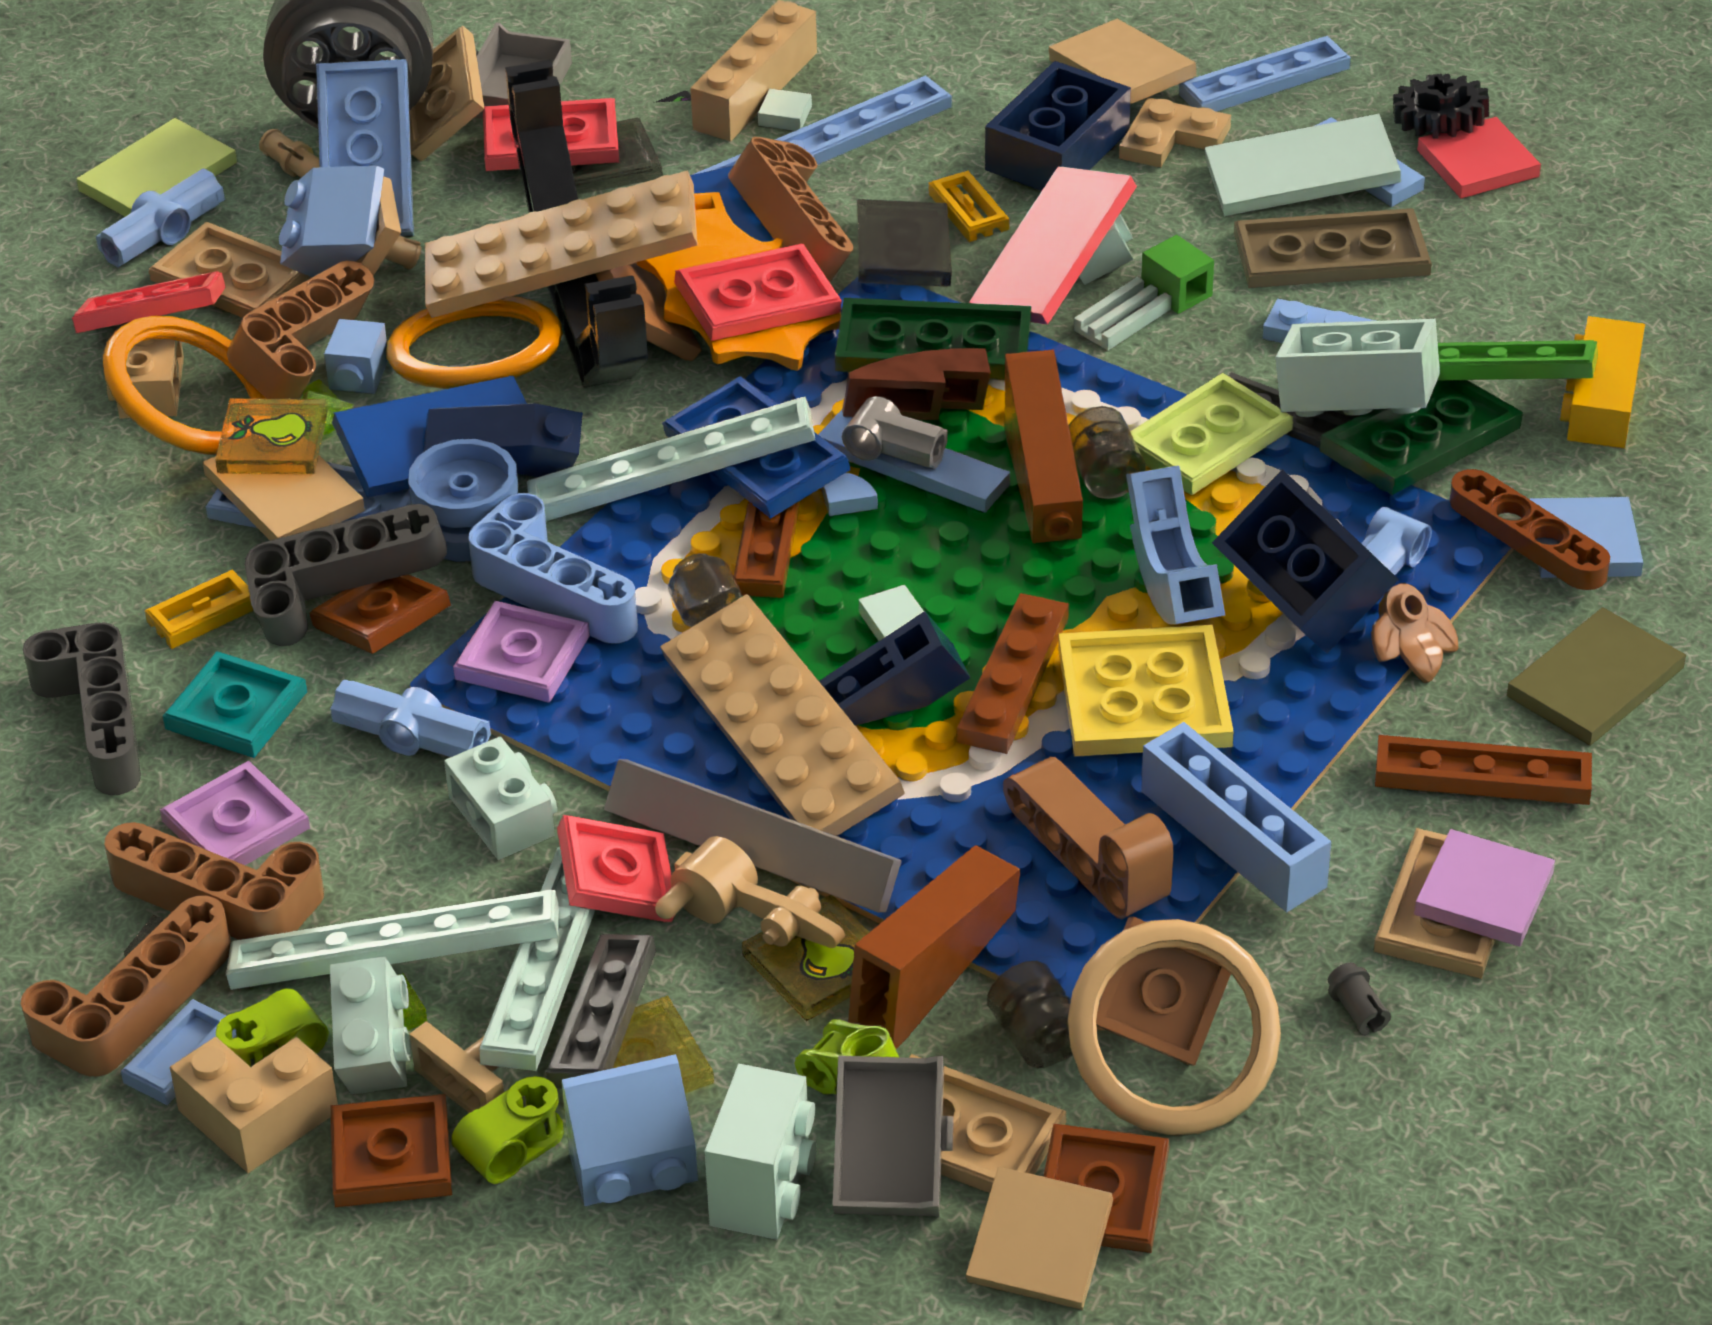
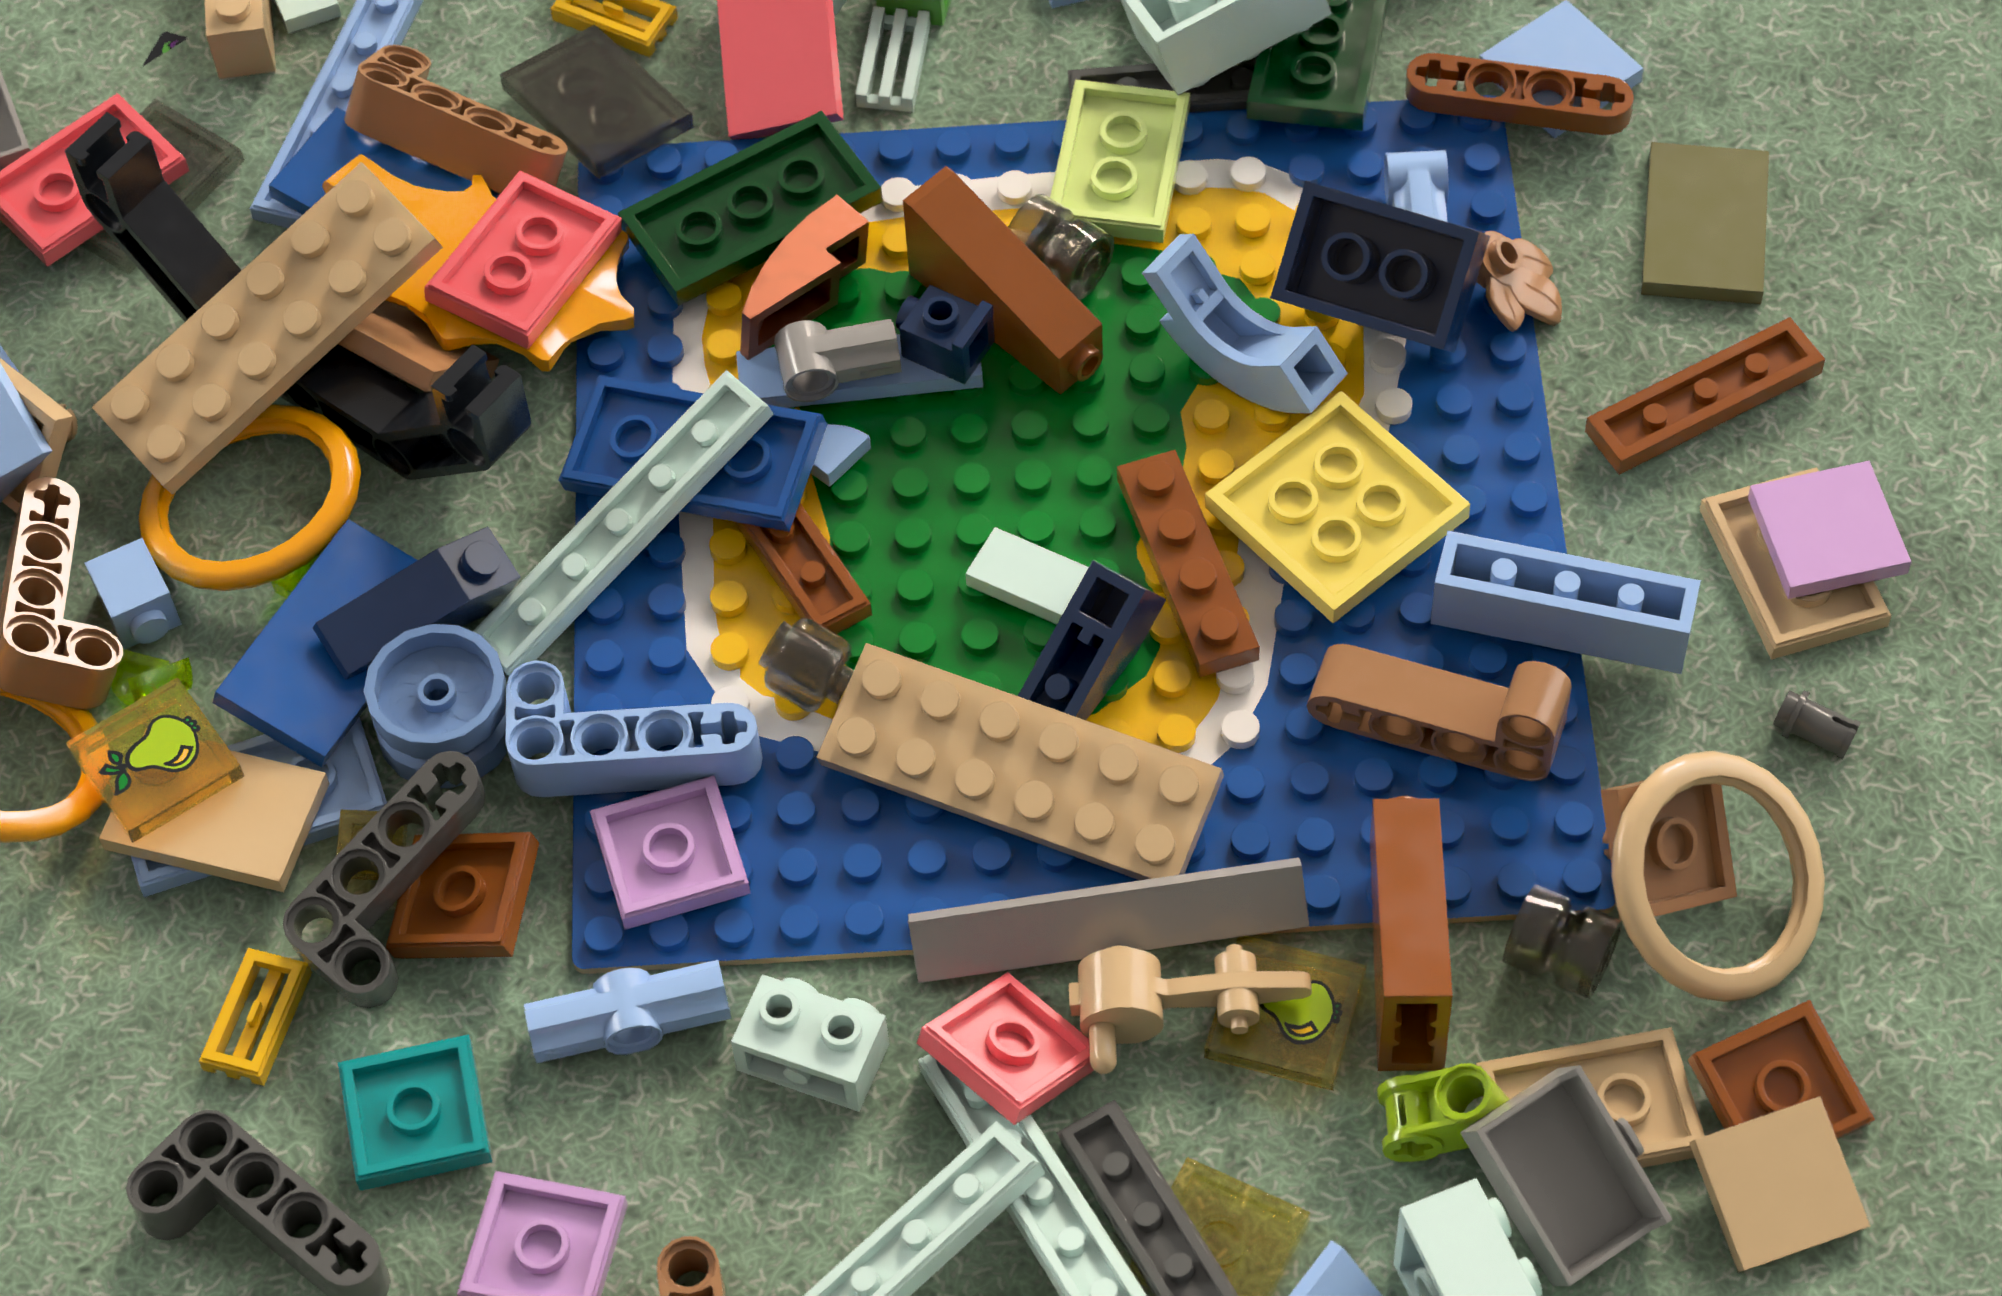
camera: 35 degrees left, 15 degrees up
(974, 446) = (945, 332): none -> dark blue brick

